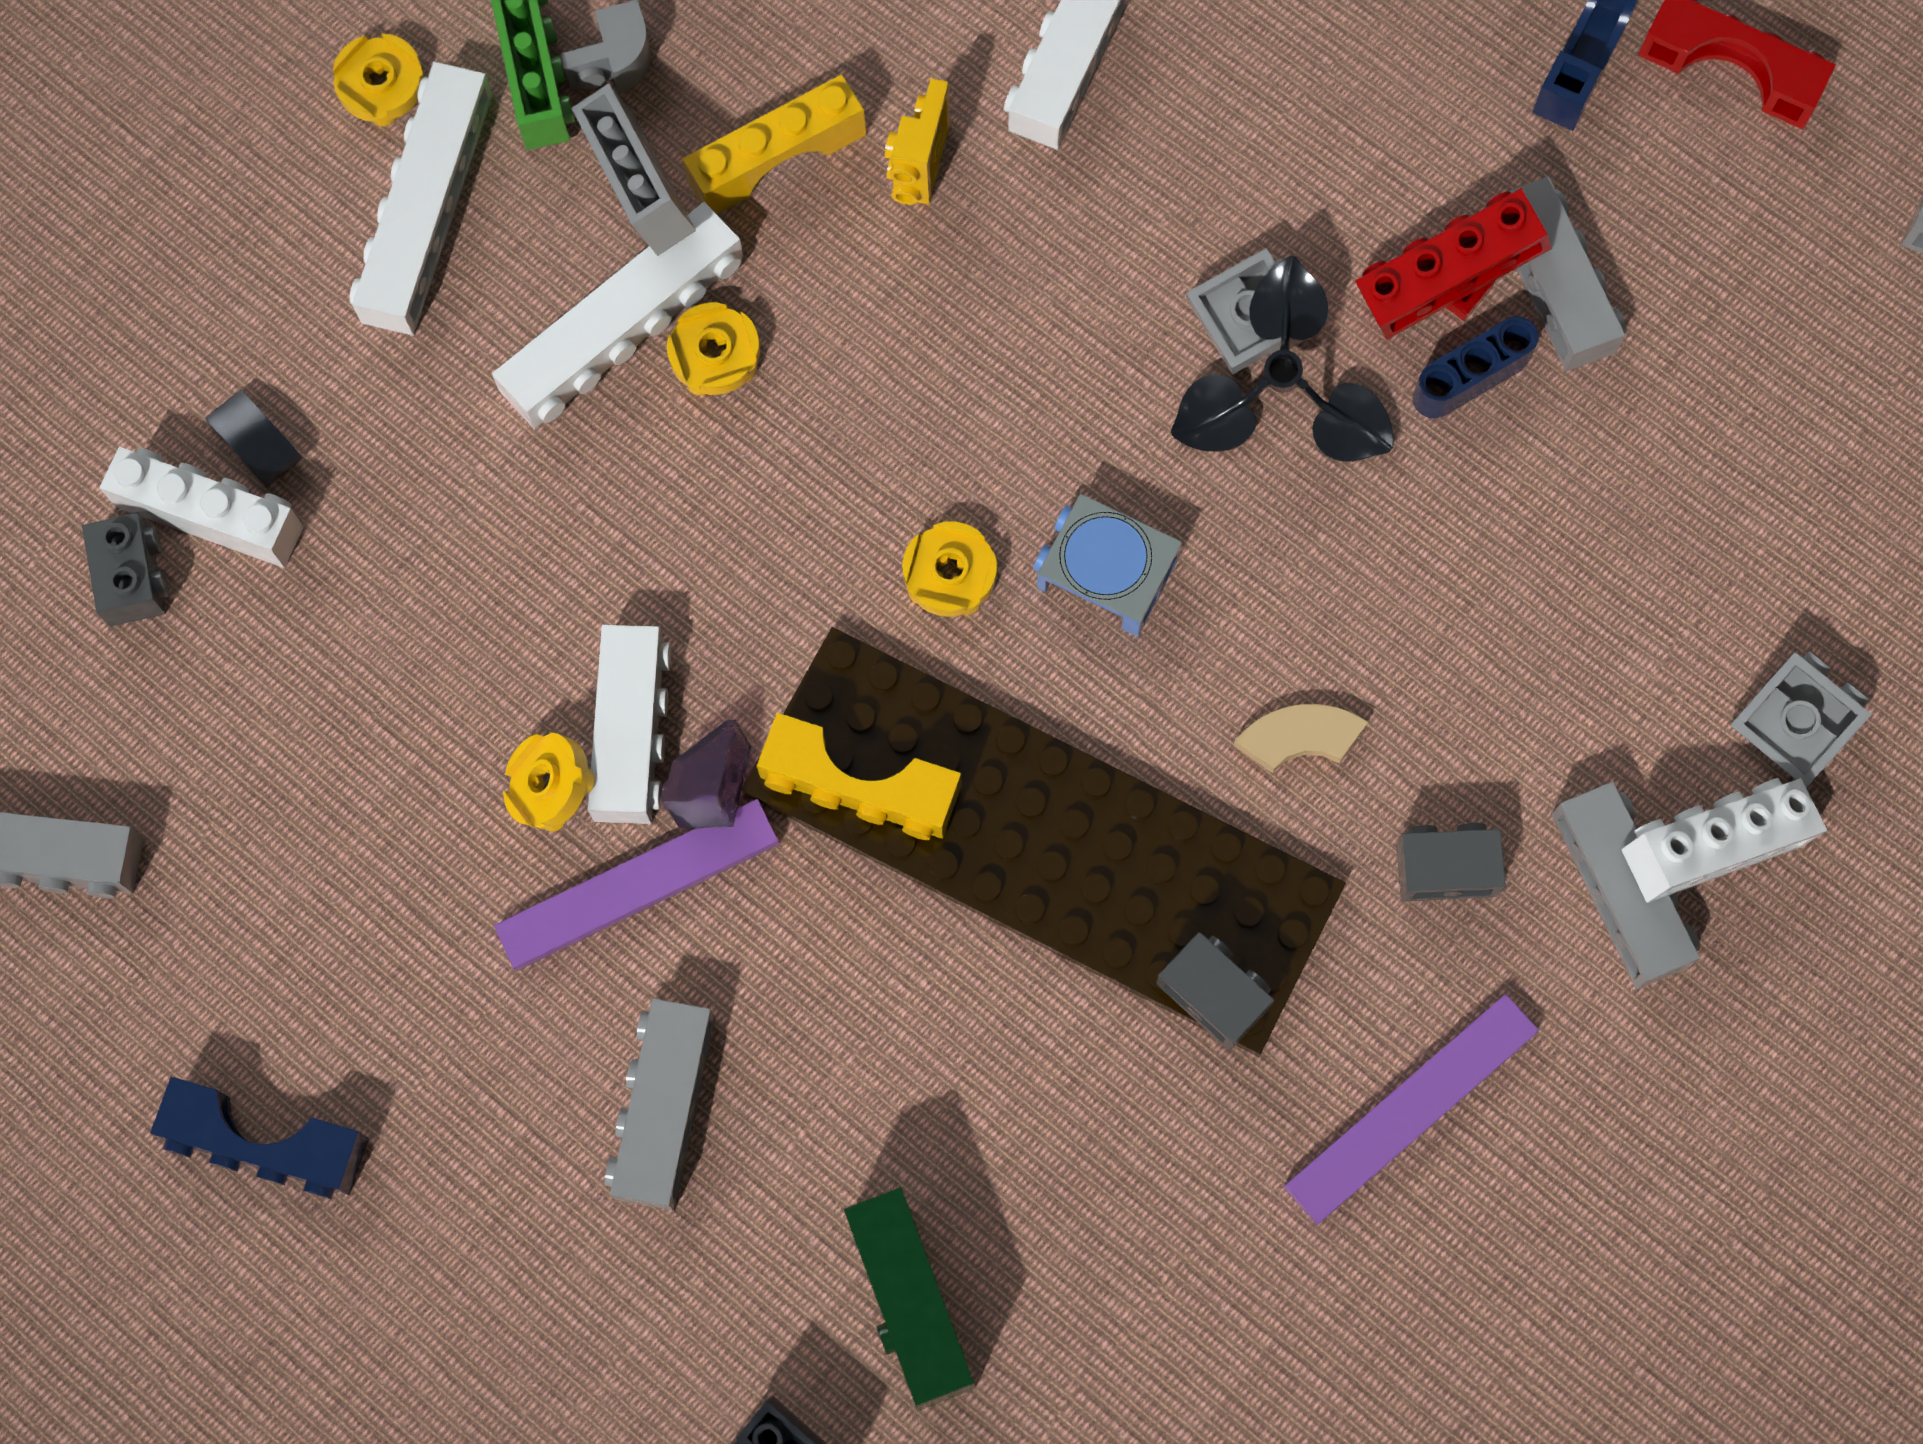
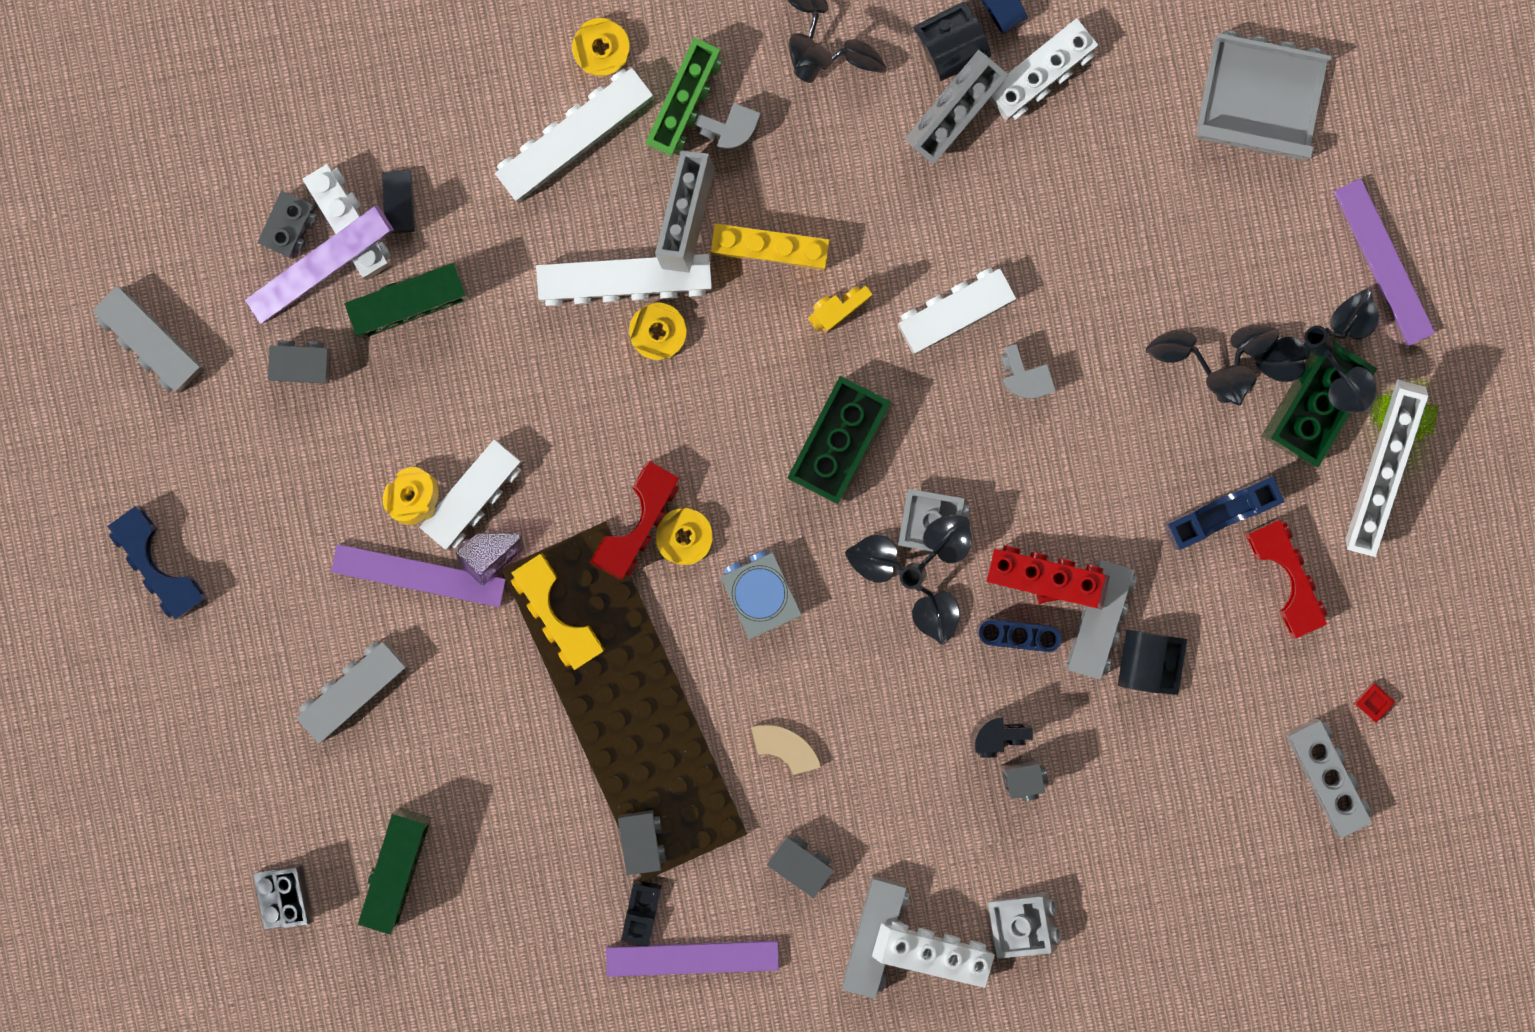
camera: 35 degrees right, 15 degrees up
(200, 576) = (319, 264): none -> tile
(267, 726) = (299, 364): none -> dark grey brick
(354, 537) = (407, 301): none -> dark green brick
(862, 540) = (653, 489): none -> red arch
(1052, 302) = (840, 440): none -> dark green brick
(1219, 74) = (1024, 383): none -> light grey brick
(1293, 1101) = (641, 912): none -> black slope
(1556, 497) = (991, 733): none -> black brick
(1640, 527) = (1024, 779): none -> dark grey brick
(1666, 274) = (1152, 662): none -> black brick

